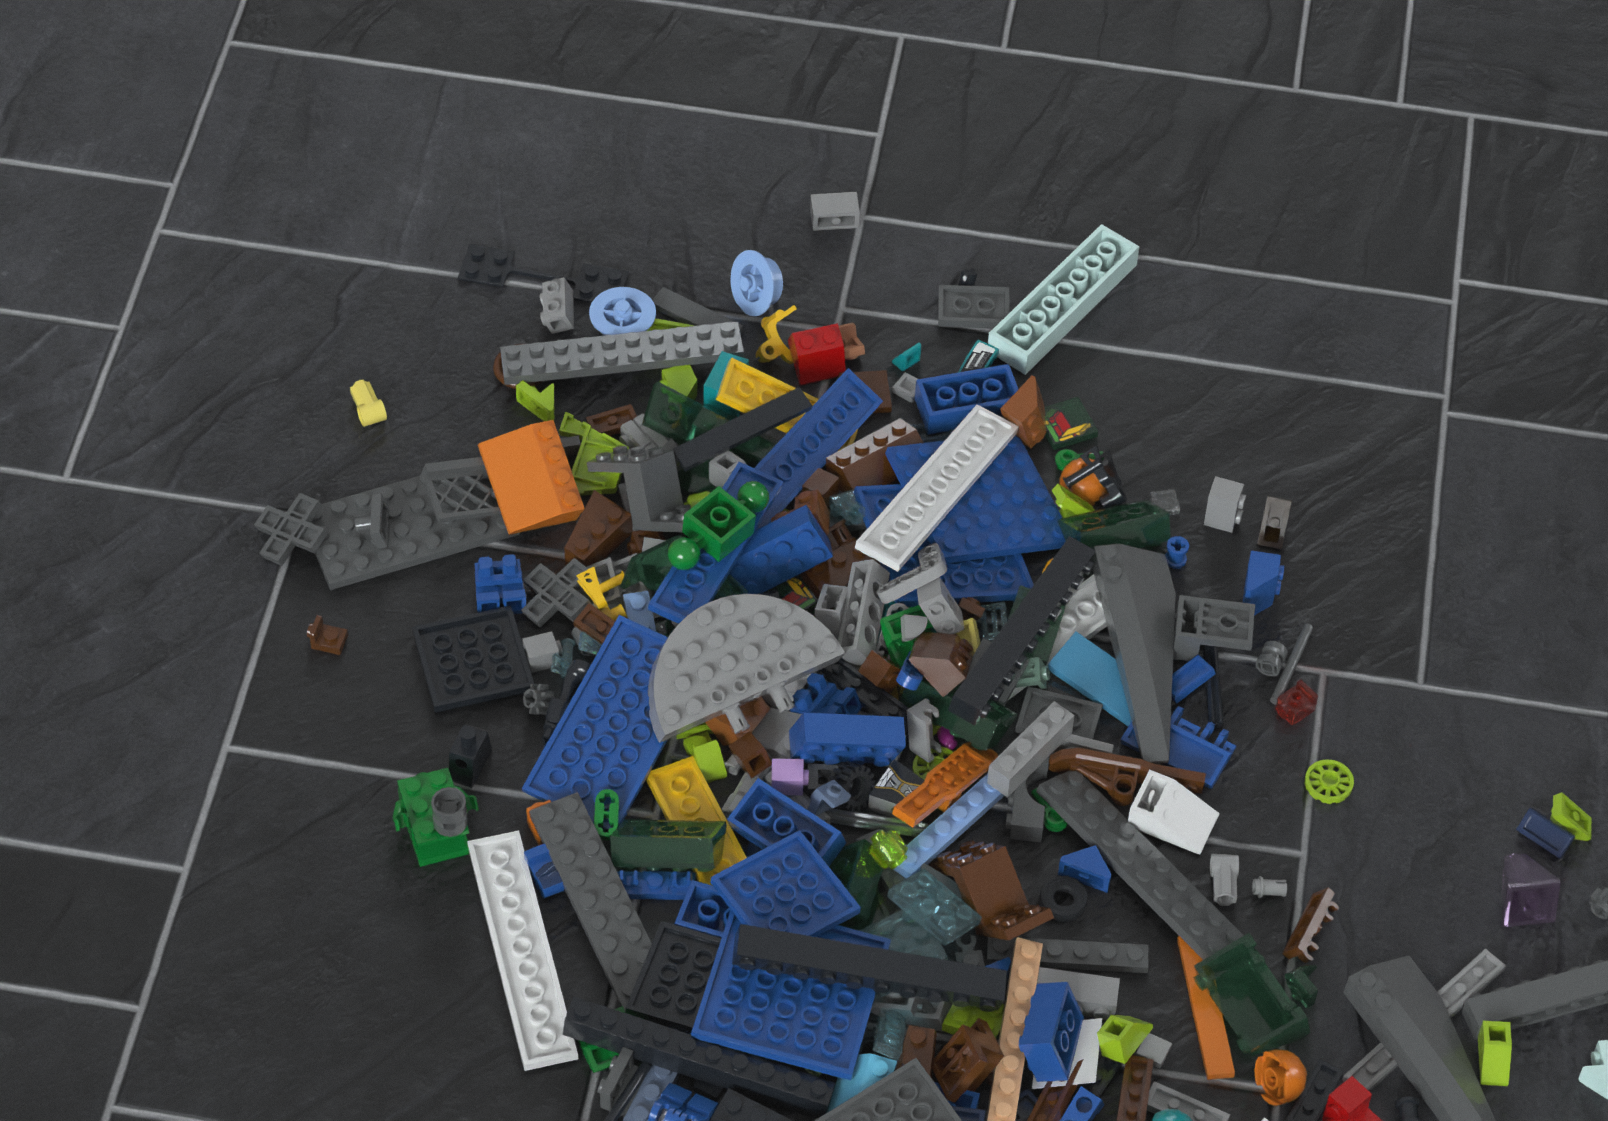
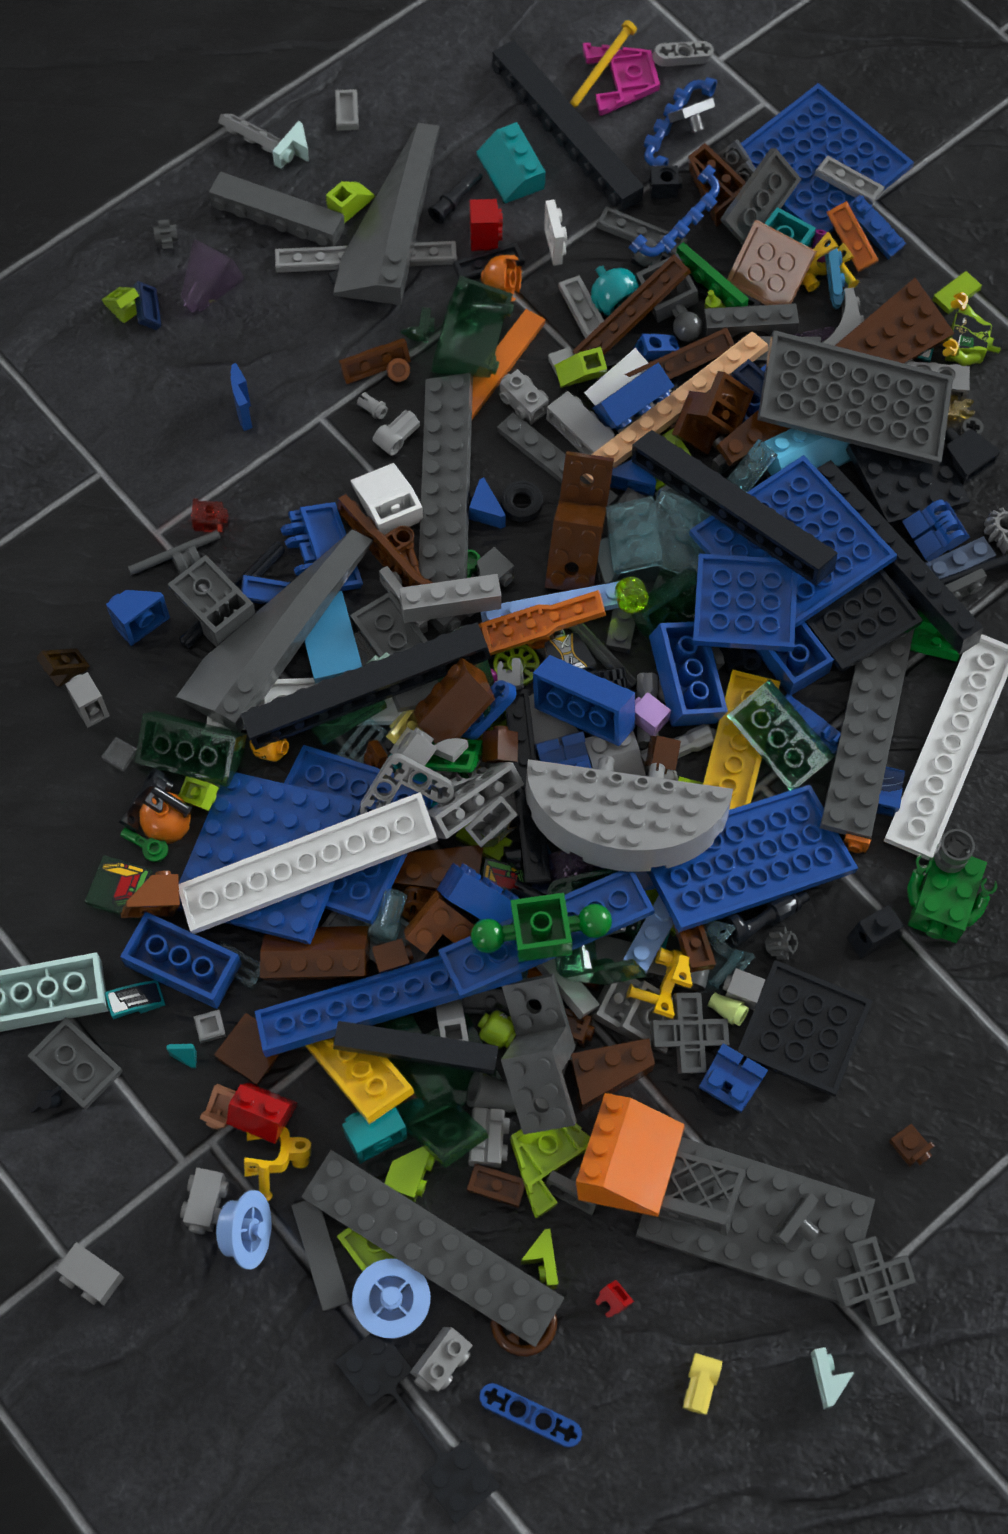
camera: 140 degrees left, 15 degrees up
(279, 457) = (829, 1386): none -> light aqua slope
(469, 412) = (616, 1298): none -> red tile
(470, 318) = (528, 1419): none -> blue beam
(536, 628) = (729, 1008): none -> yellowish green cone
(601, 814) = (805, 791): green beam -> none
(803, 287) = (203, 1204): none -> light grey brick
(827, 797) = (636, 671): sand blue bracket -> none
(1153, 985) = (523, 396): none -> light grey brick
(1177, 550) = (157, 702): blue bush -> none
(1282, 932) = (398, 369): none -> dark orange tile
(1329, 781) = (246, 450): lime wheel -> none
(1376, 798) = (241, 397): none -> blue slope

